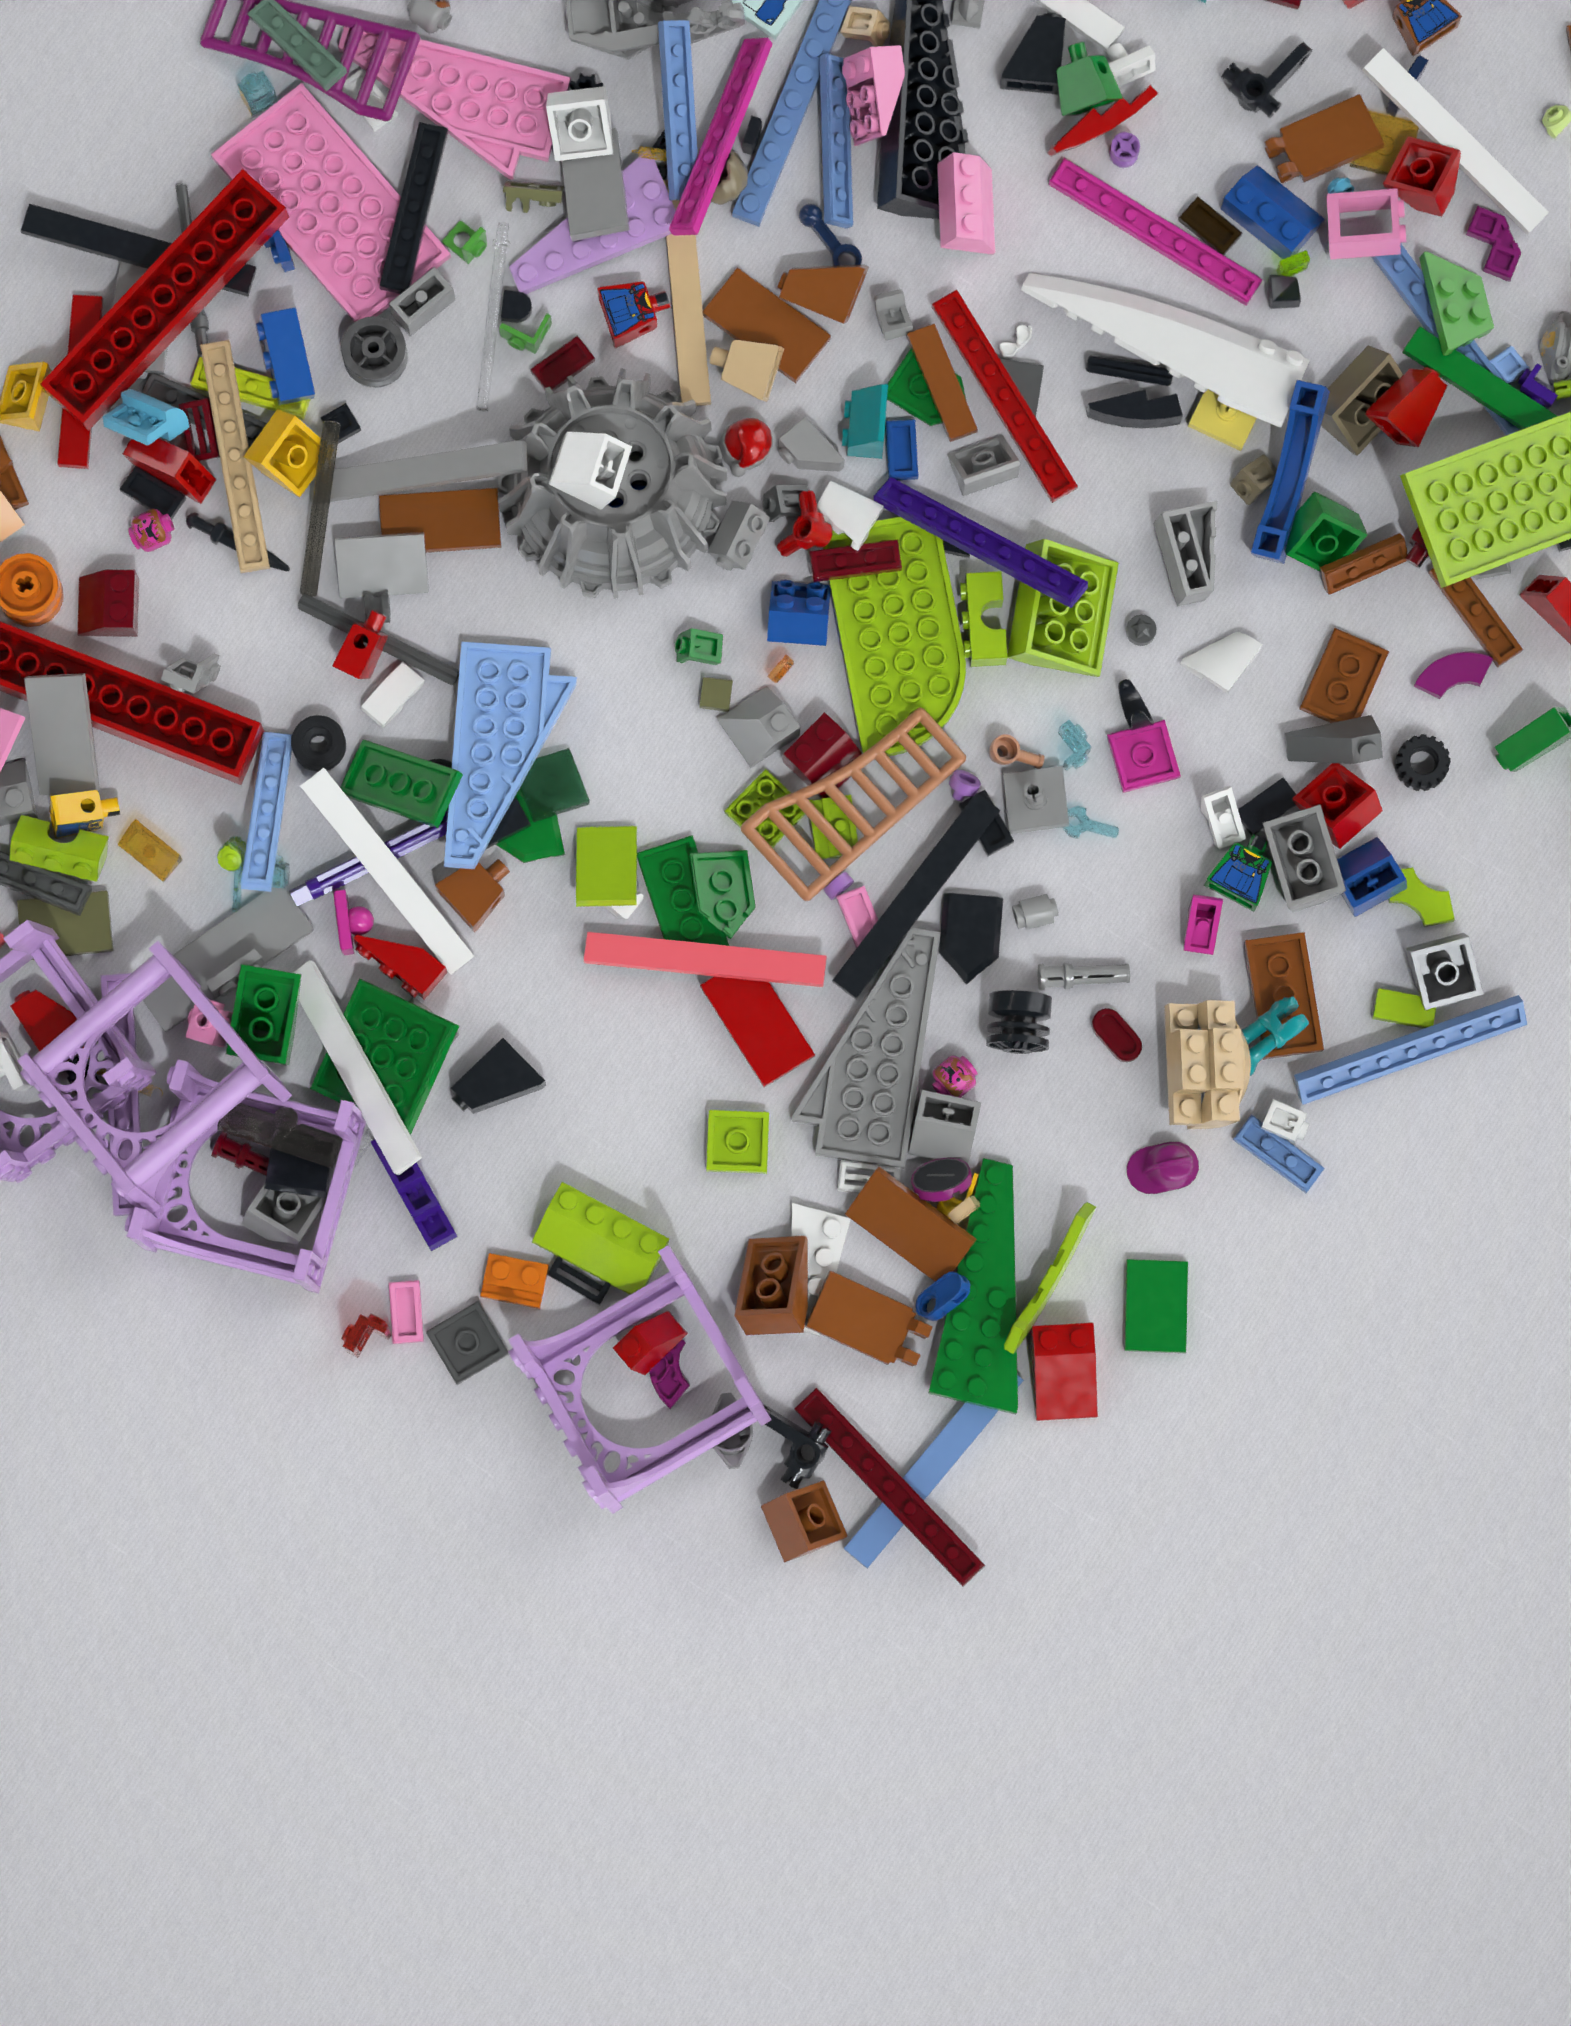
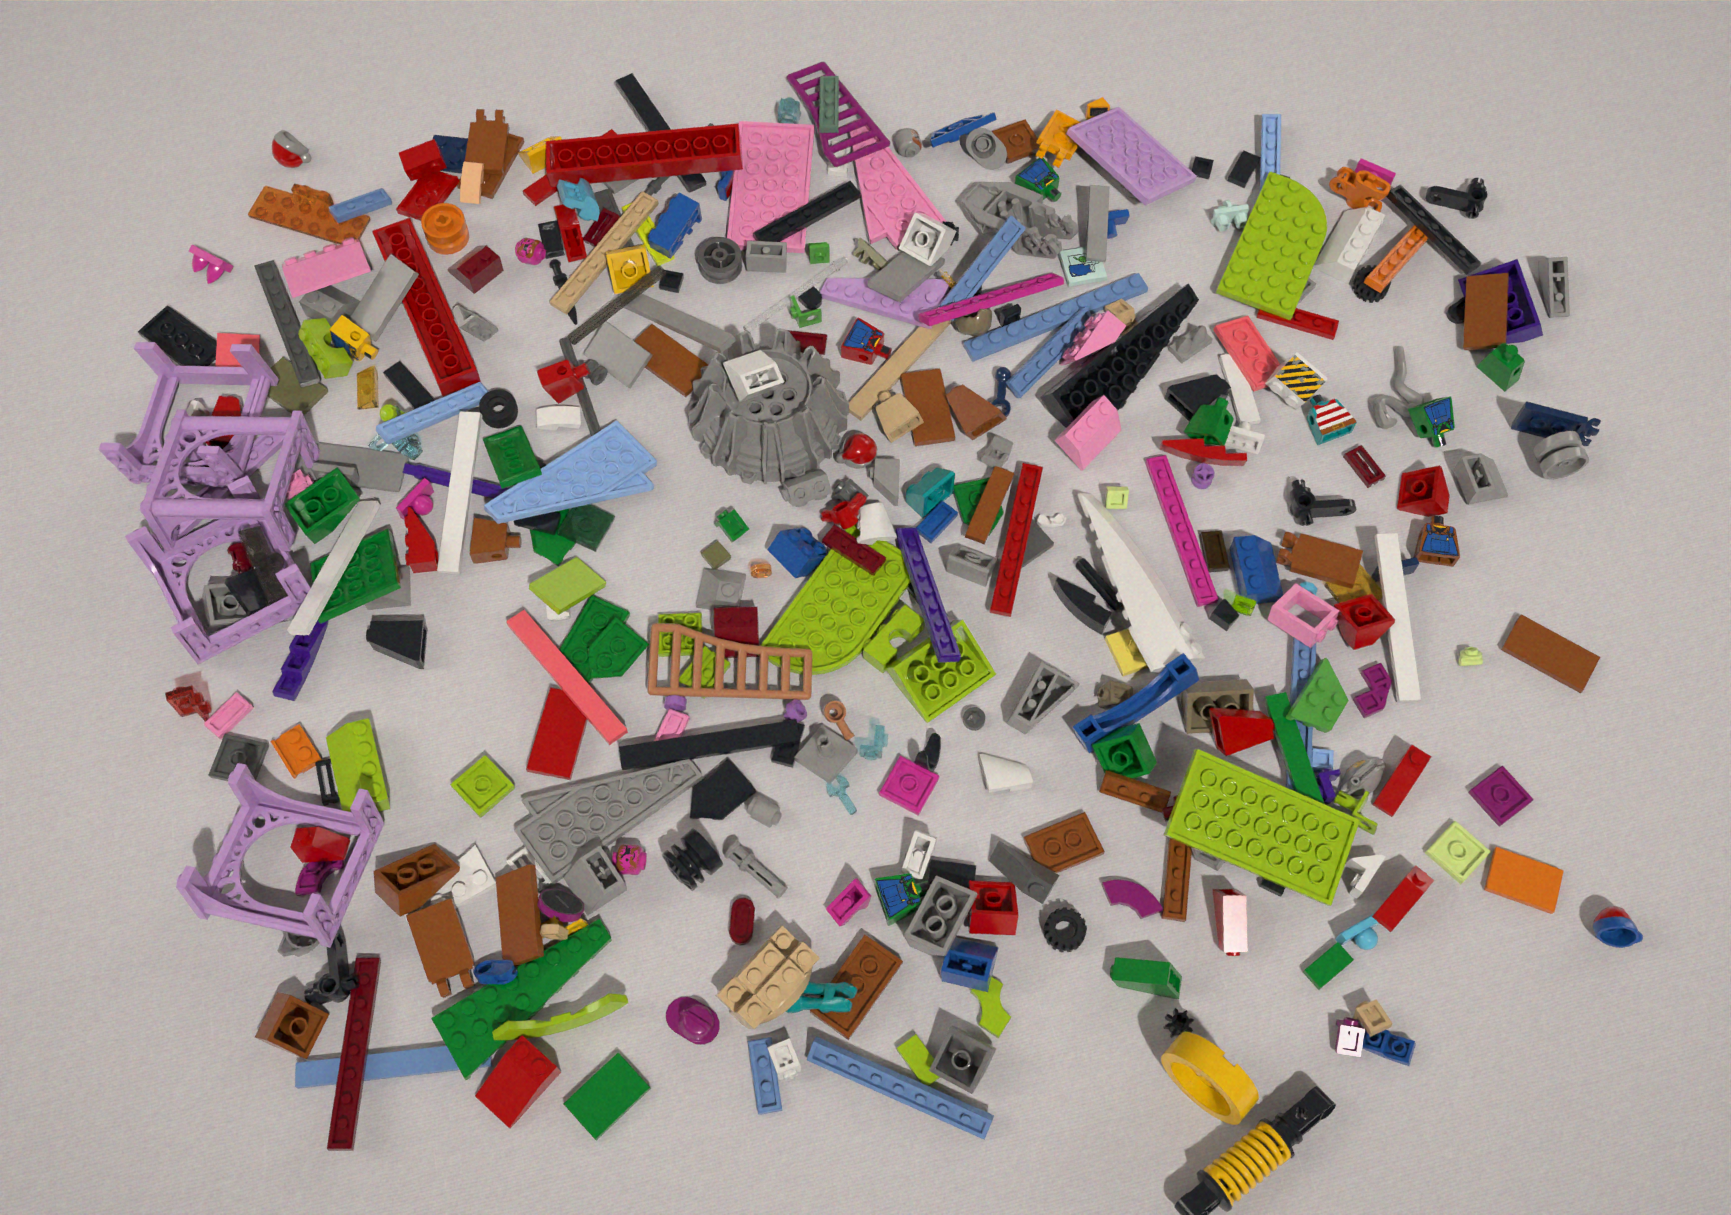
camera: 45 degrees right, 15 degrees down
(194, 808) = (407, 385): none -> black tile
(1060, 255) = (1116, 497): none -> yellowish green tile

